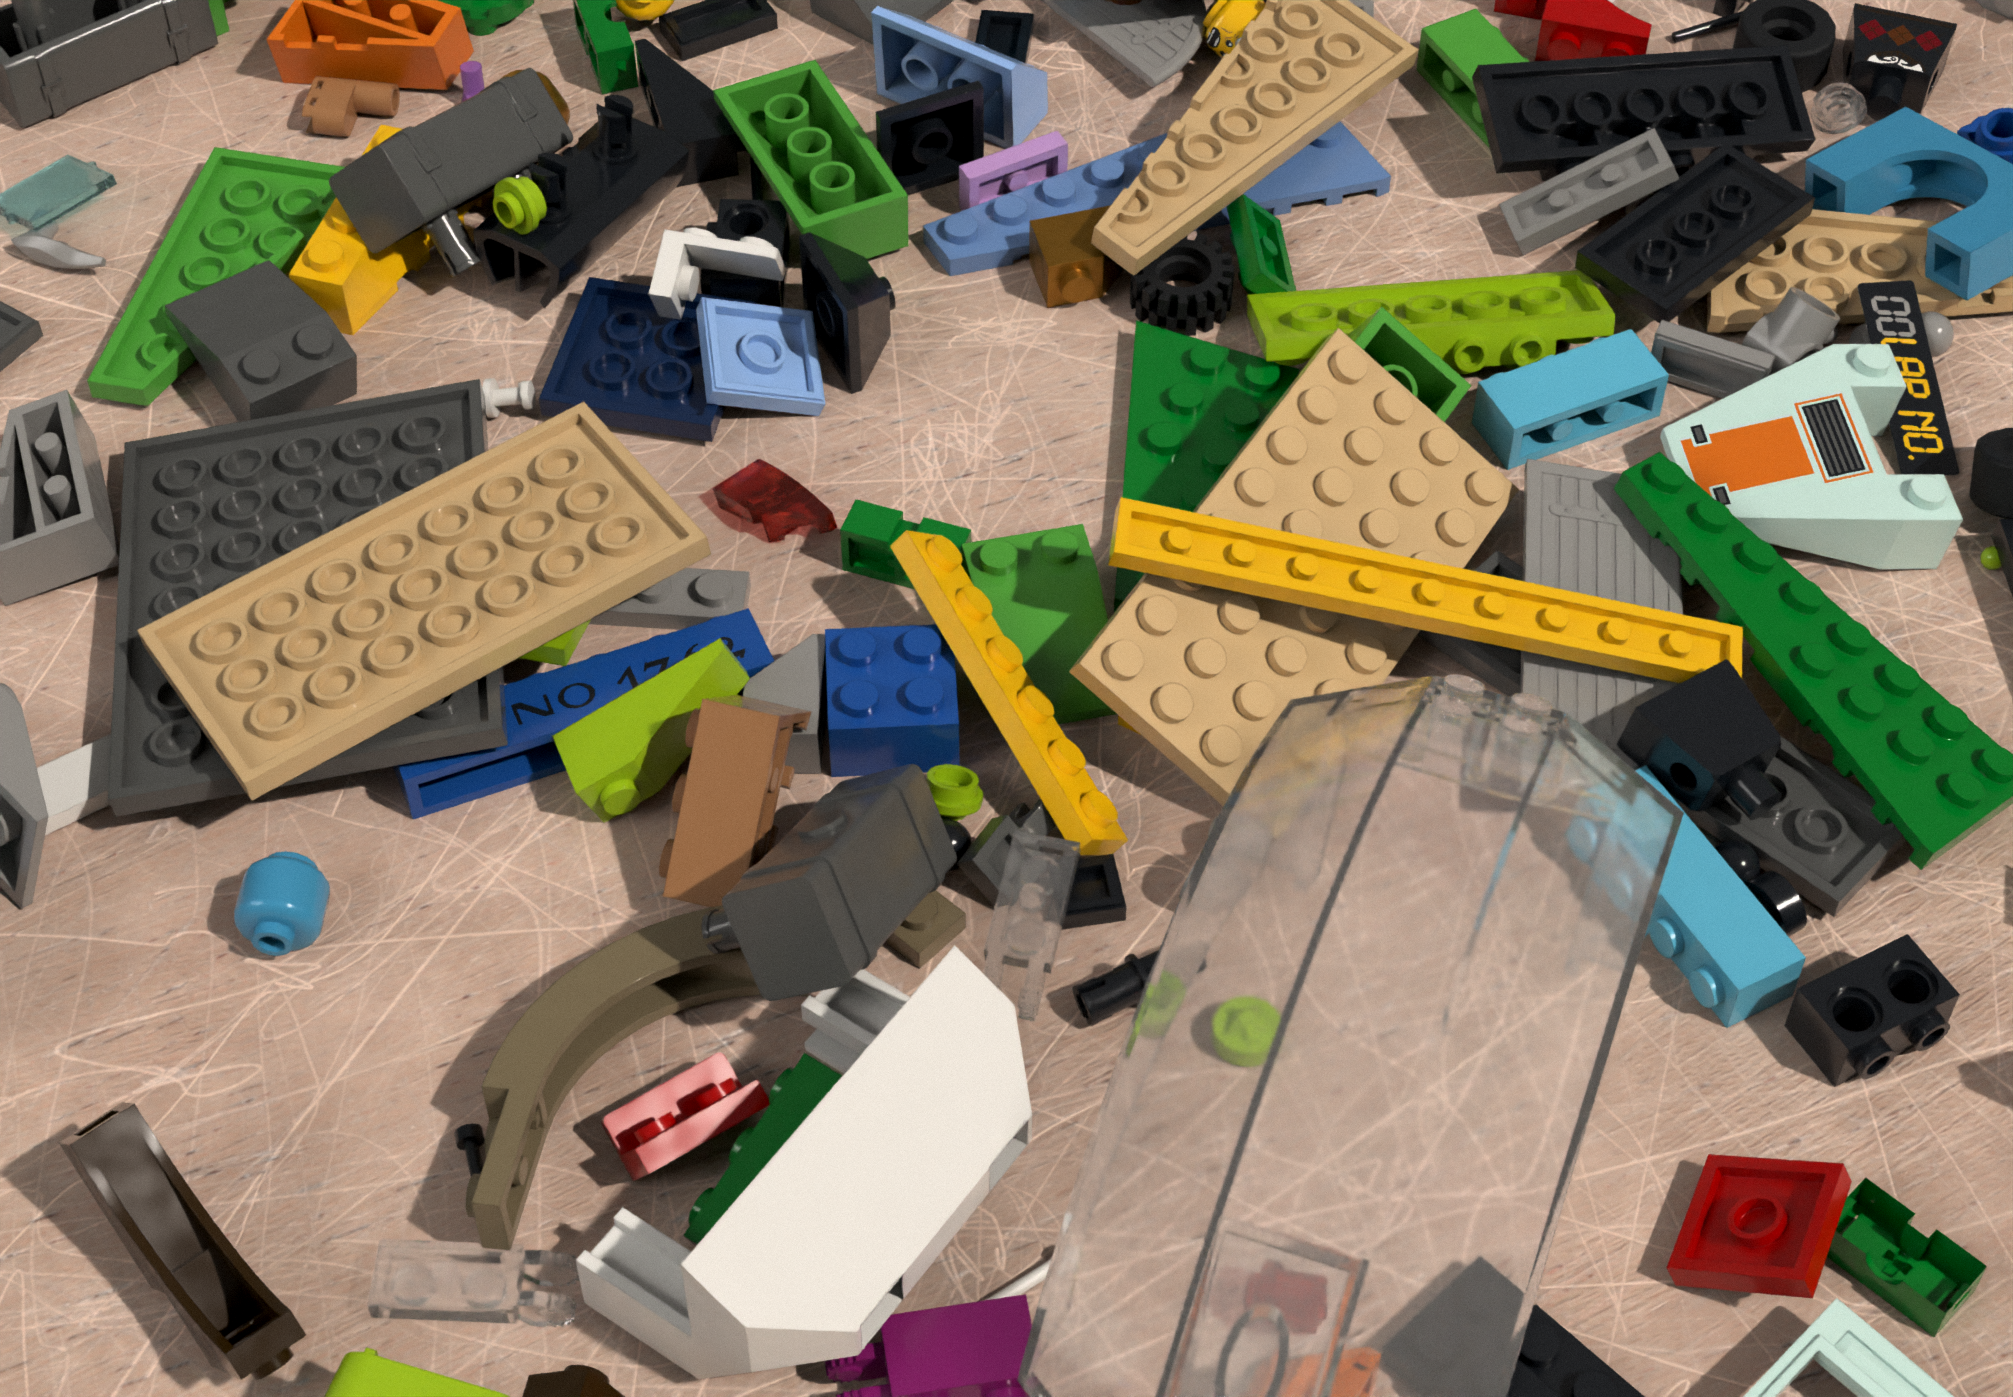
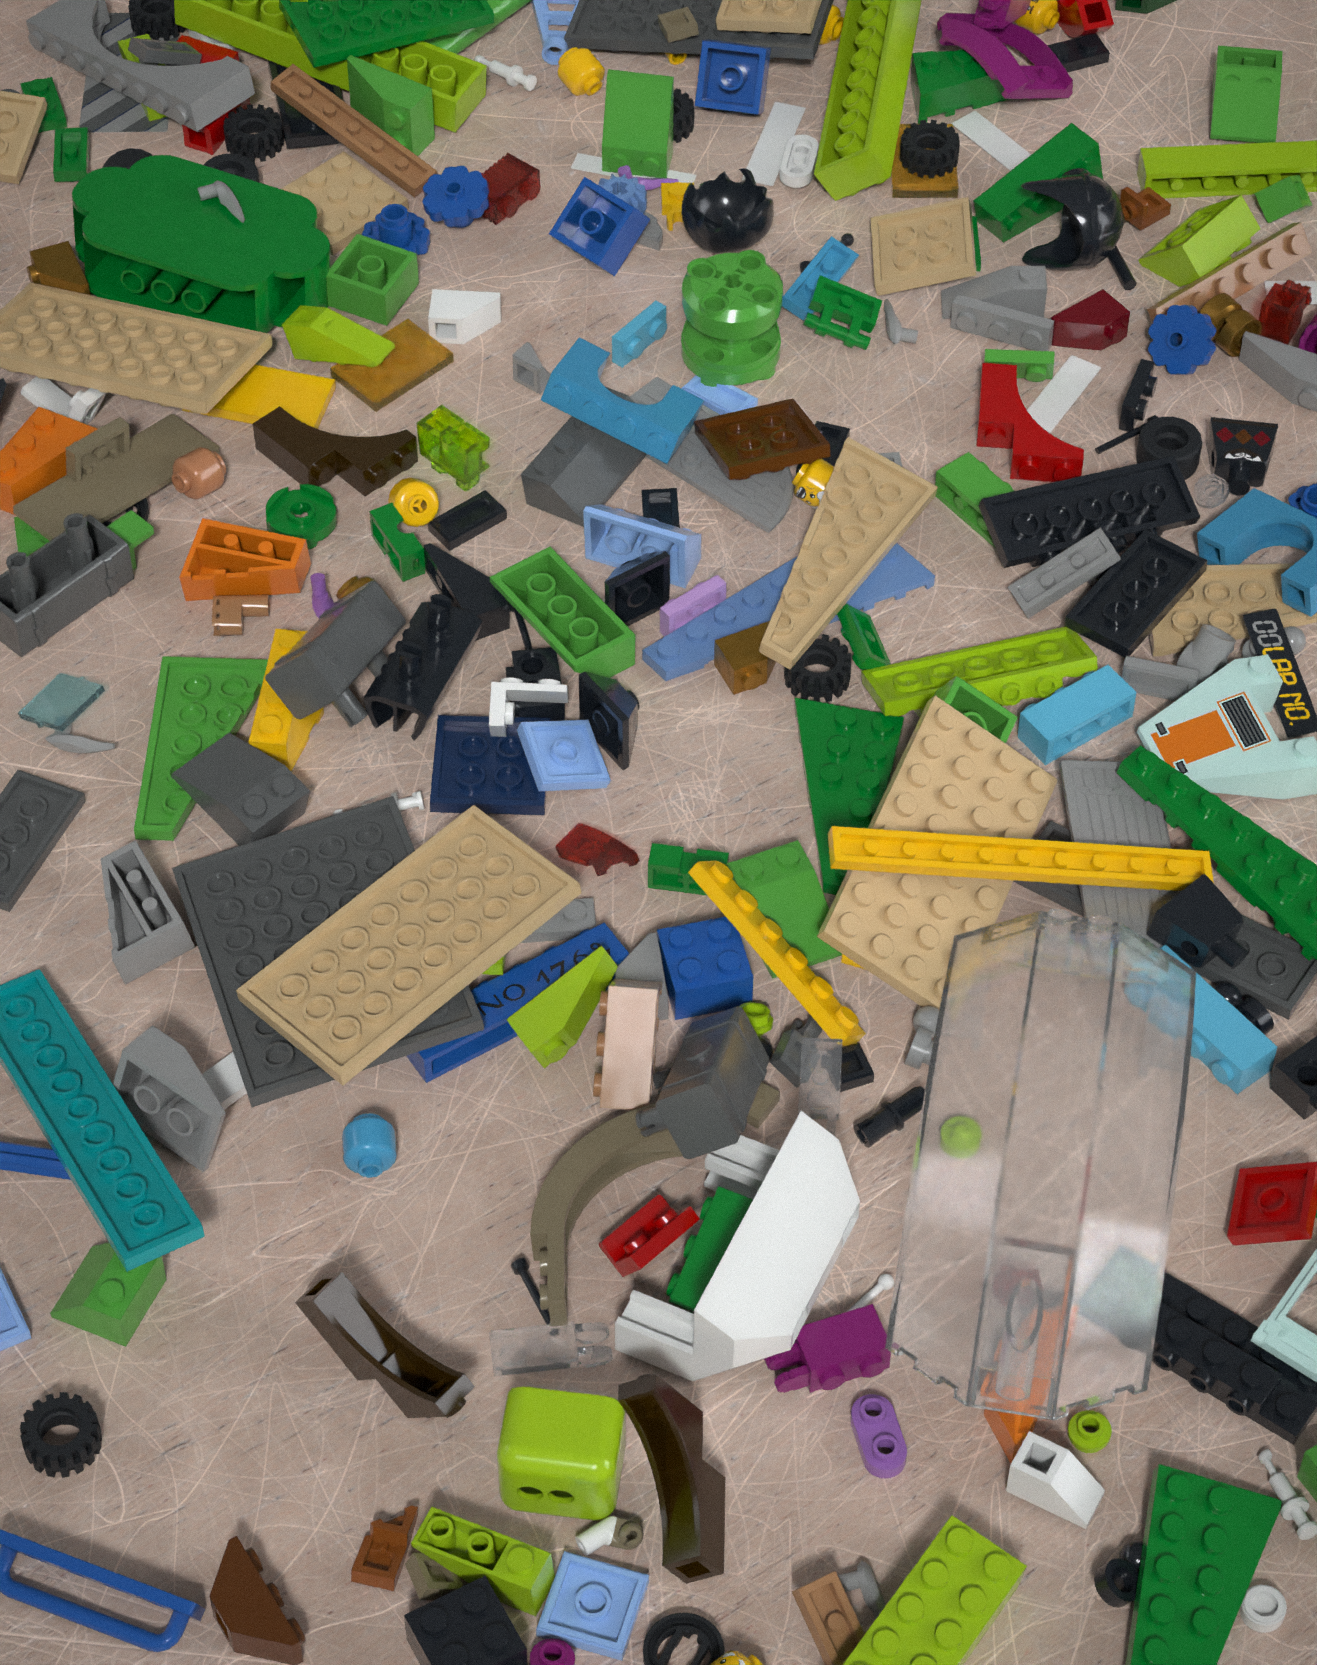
camera: 10 degrees left, 0 degrees up
(519, 204) = (395, 677): lime plate -> none

